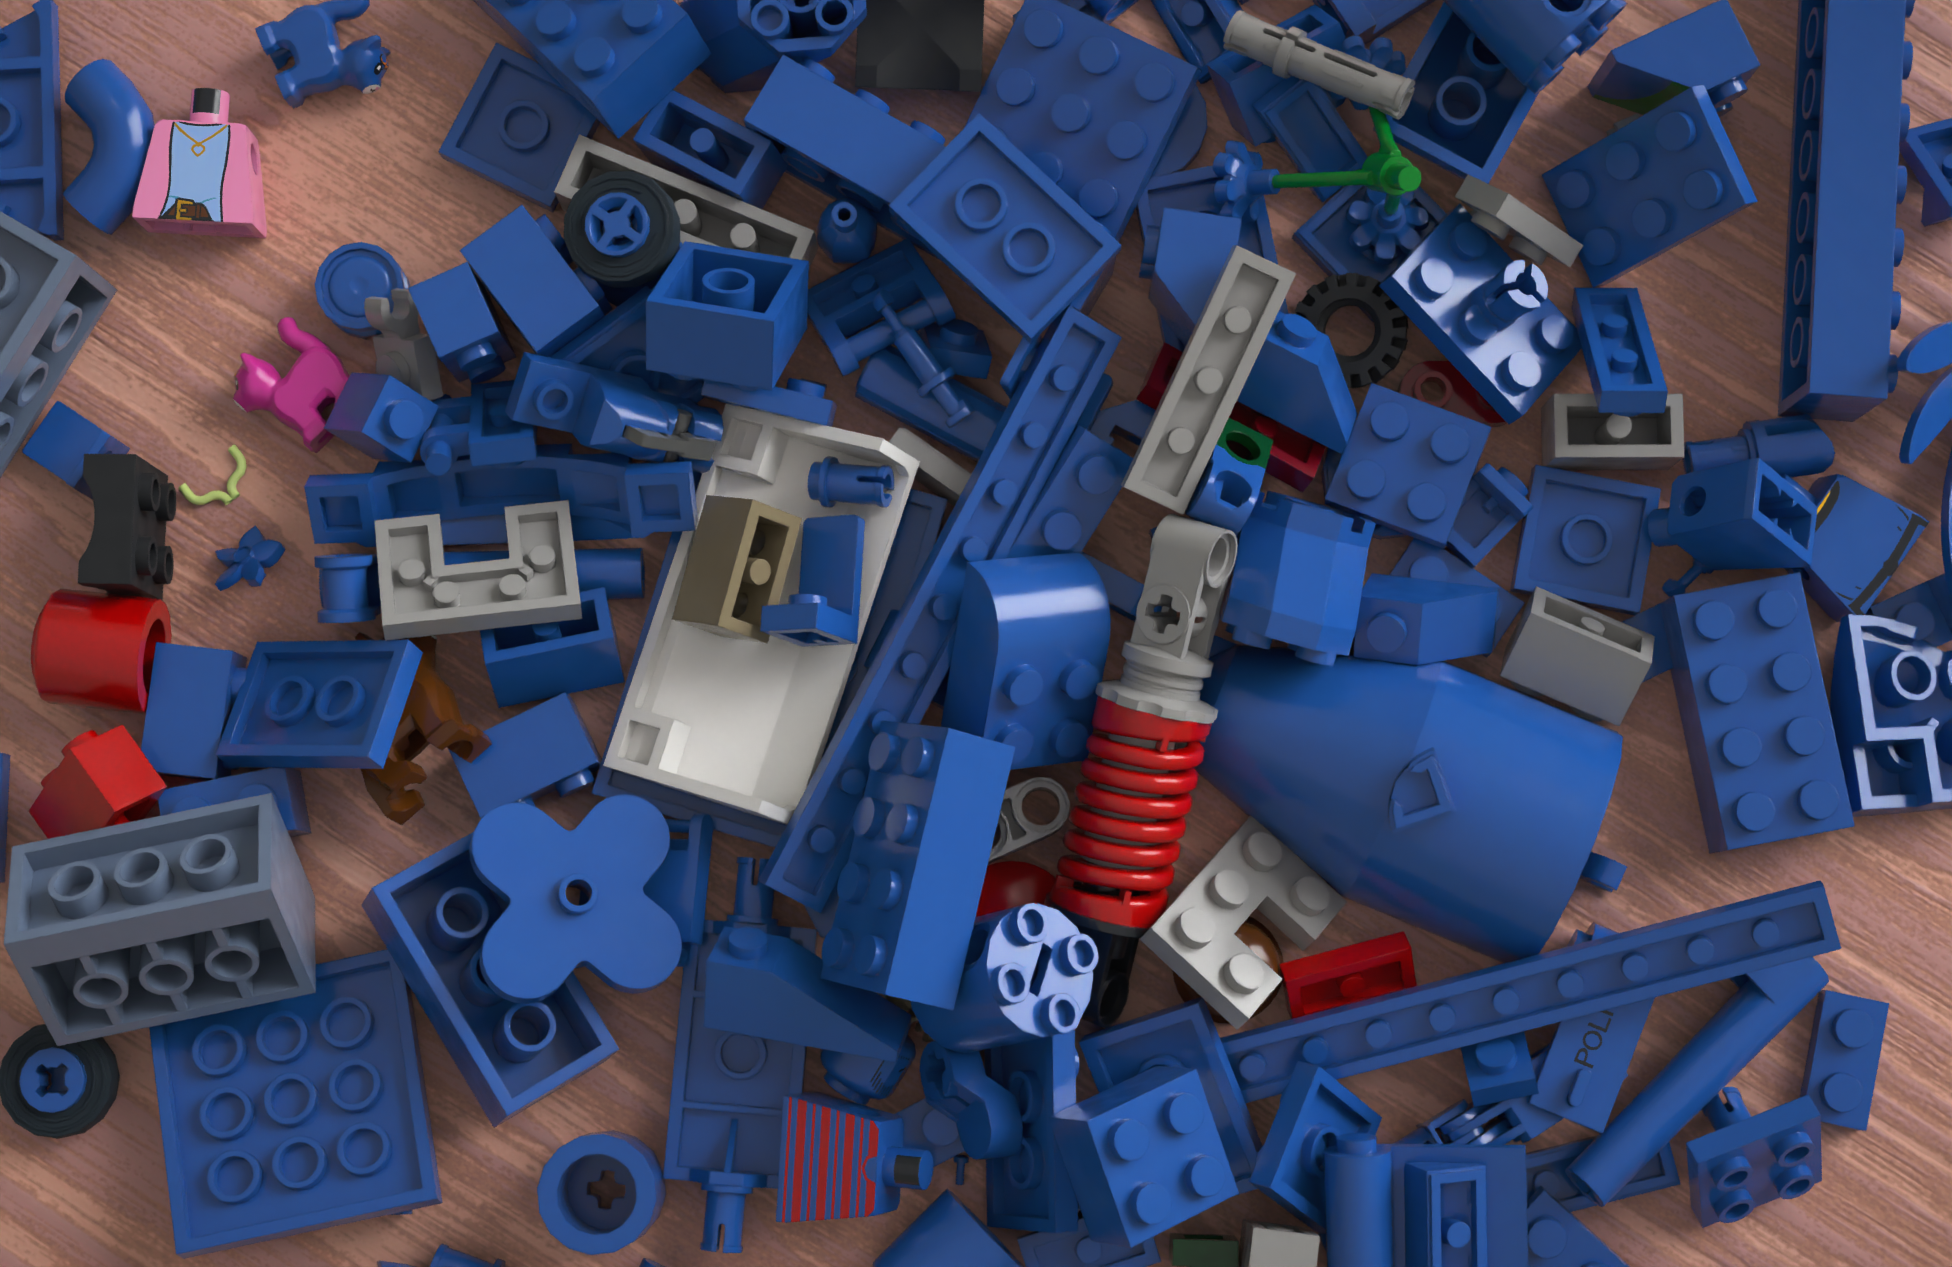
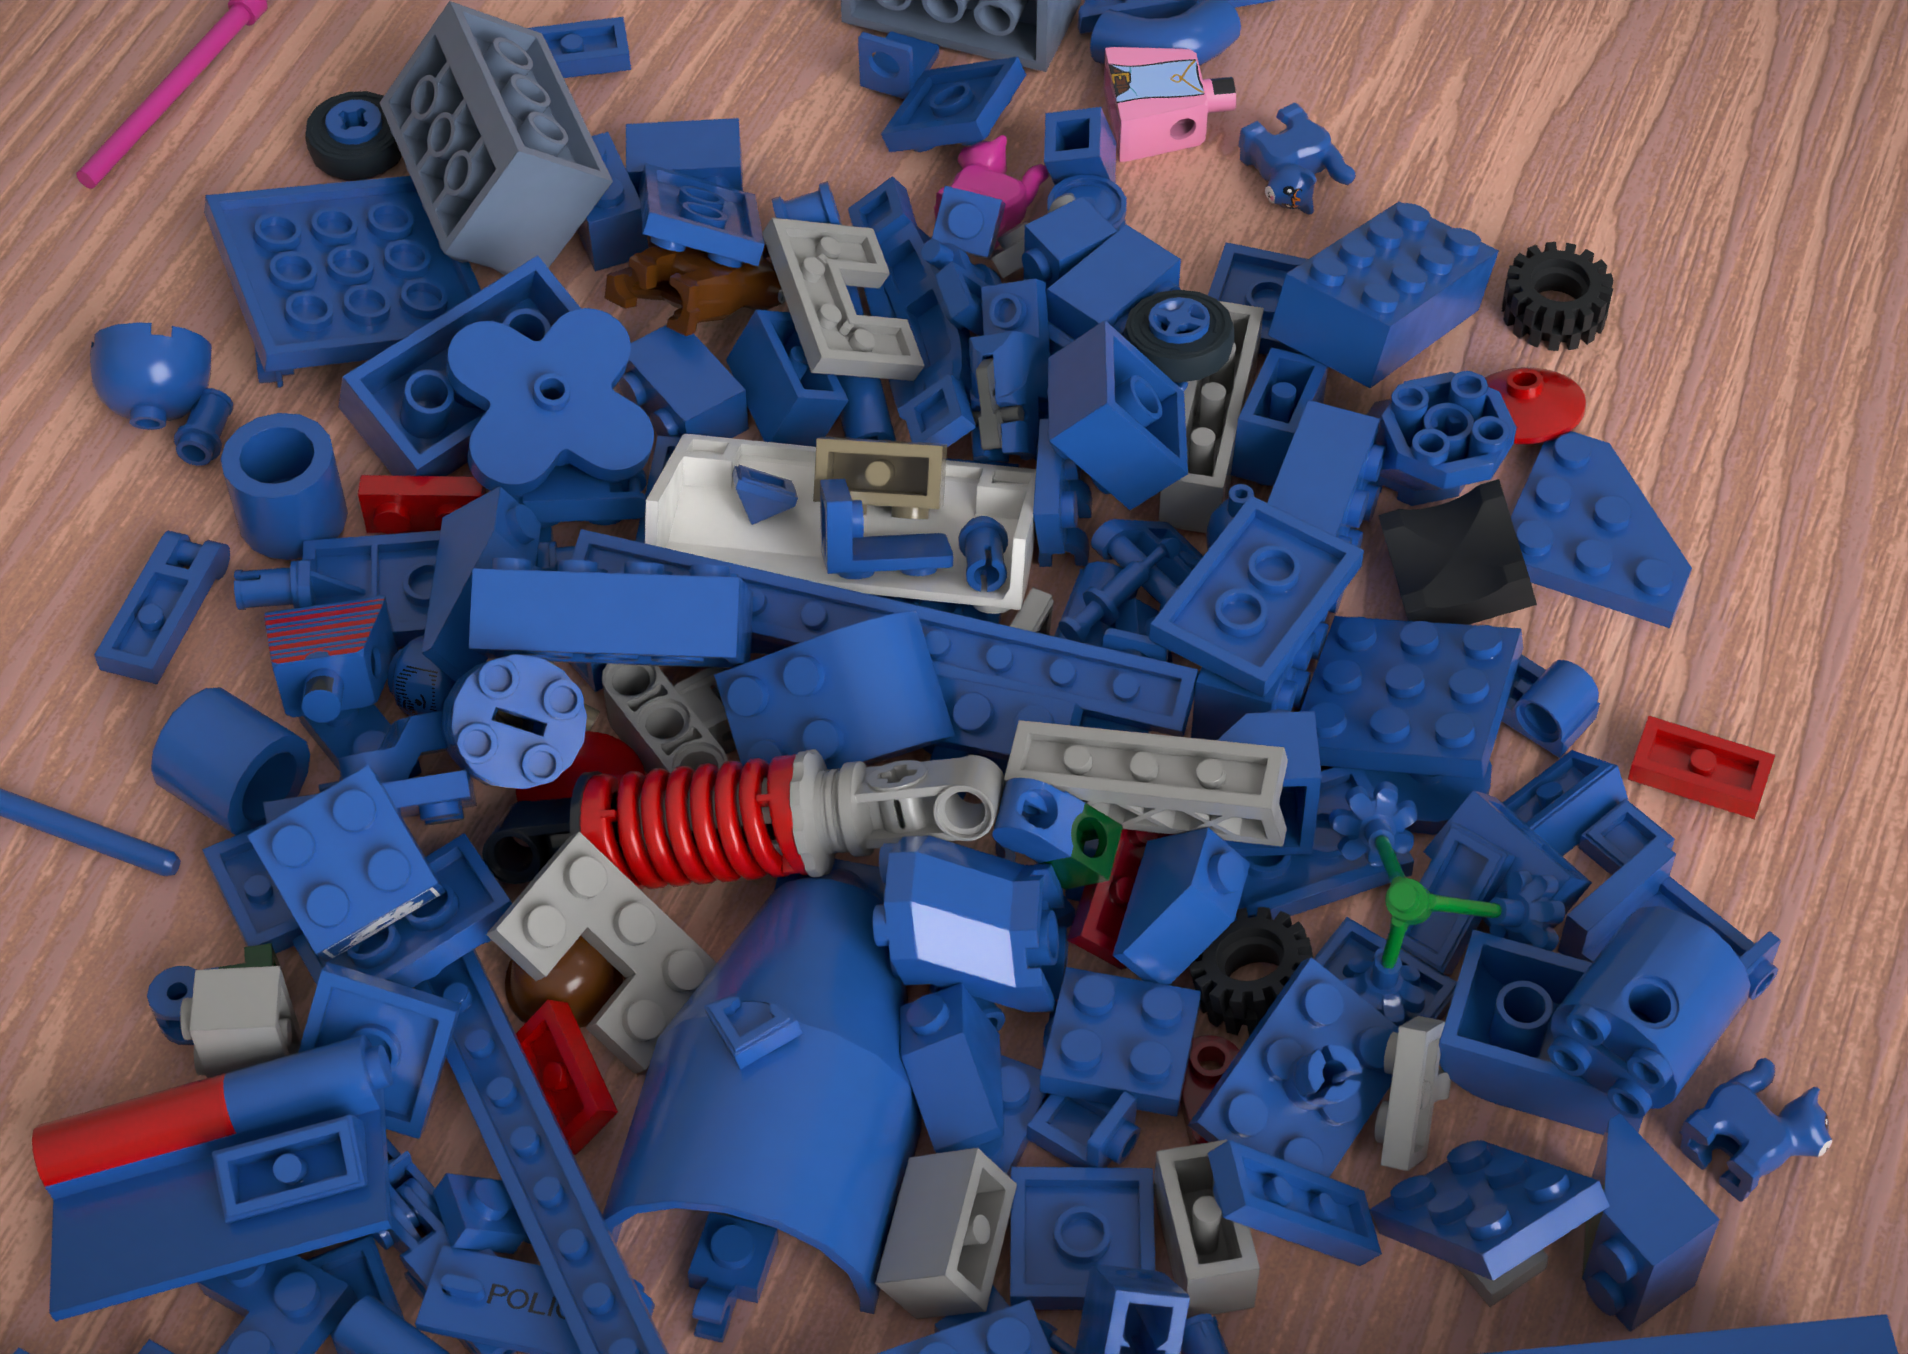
camera: 80 degrees right, 30 degrees down
(97, 649) = (728, 75): red piece -> none
(97, 785) = (612, 90): red brick -> none
(129, 526) = (833, 84): black brick -> none
(174, 400) = (954, 105): none -> blue plate
(231, 484) = (886, 173): yellowish green piece -> none
(248, 560) = (840, 188): blue plant -> none
(281, 277) = (1079, 144): none -> blue brick
(631, 1076) = (413, 502): none -> red plate
(720, 690) = (763, 493): none -> blue slope
(1294, 54) = (1517, 830): light grey pin -> none

